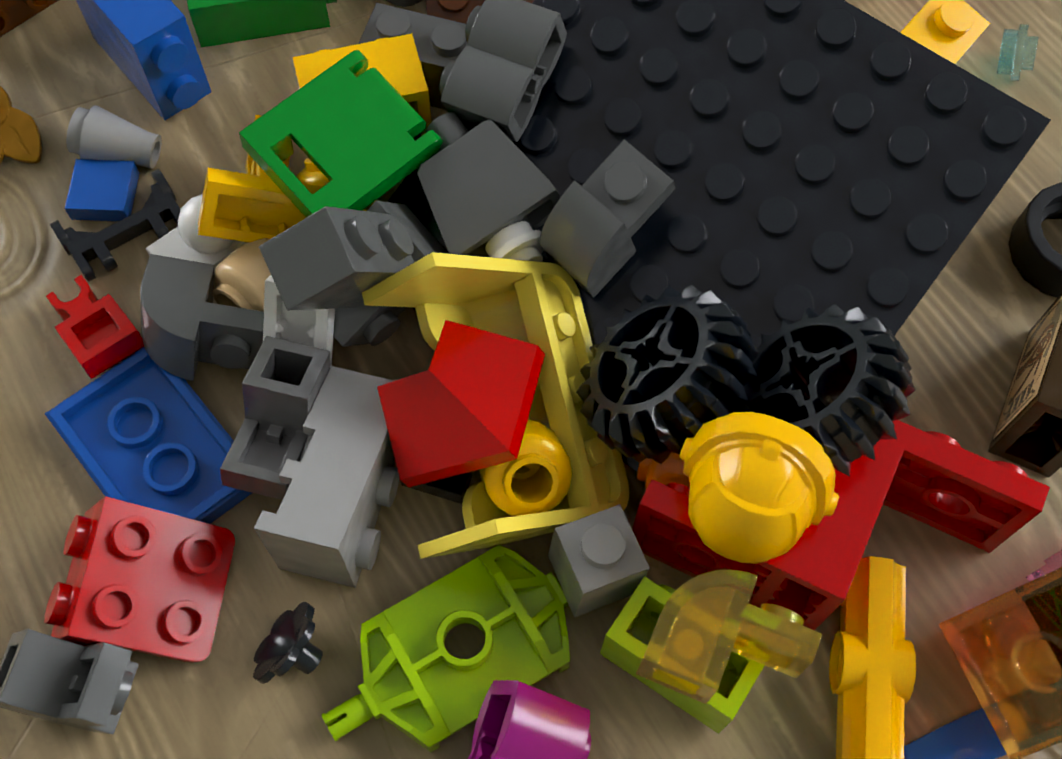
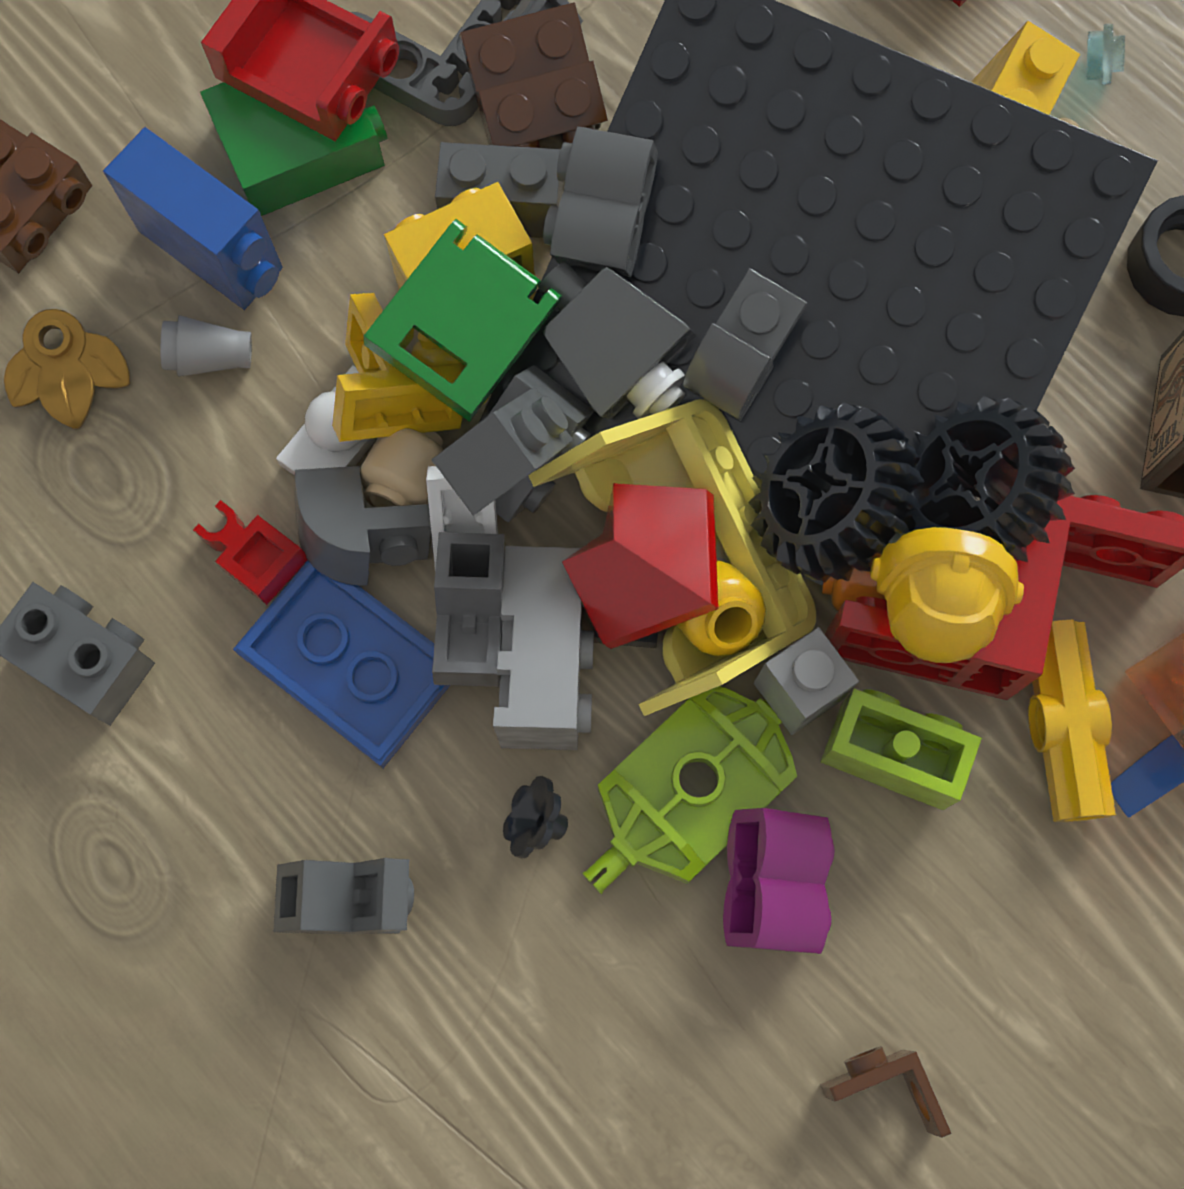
camera: 10 degrees left, 10 degrees up
(89, 245) = (215, 465): black piece -> none
(102, 190) = (208, 403): blue tile -> none
(142, 581) = (380, 790): red bracket -> none
(710, 620) = (920, 727): clear yellow brick -> none

